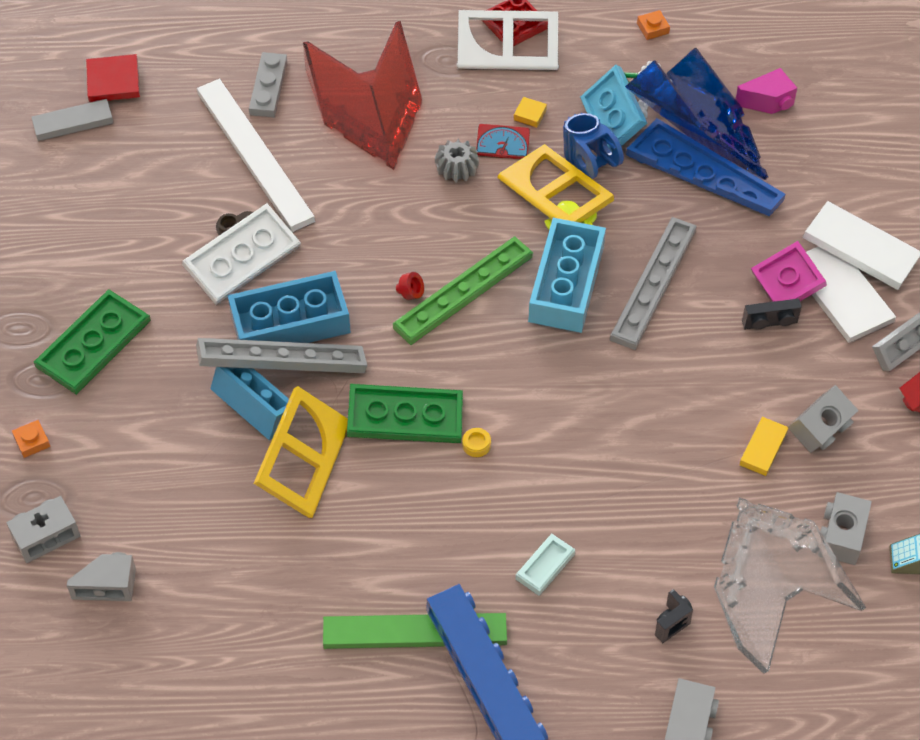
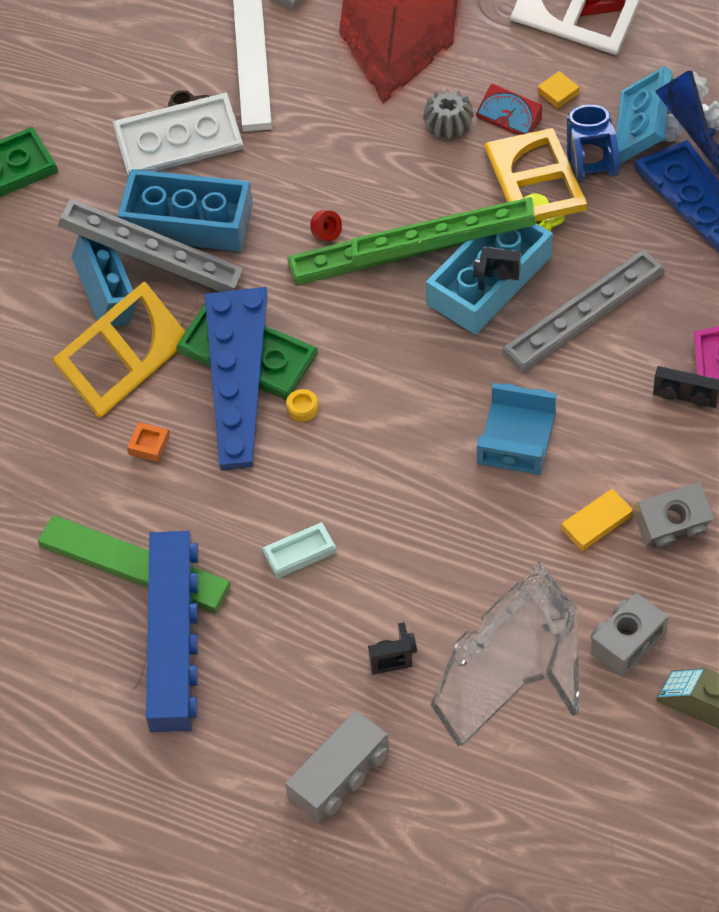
camera: 30 degrees right, 0 degrees up
(369, 522) = (148, 442): none -> orange plate
(405, 423) = (236, 351): none -> blue wing
(518, 257) = (443, 231): none -> bright green tile
(583, 267) = (497, 263): none -> black bracket
(660, 397) = (517, 429): none -> dark azure panel

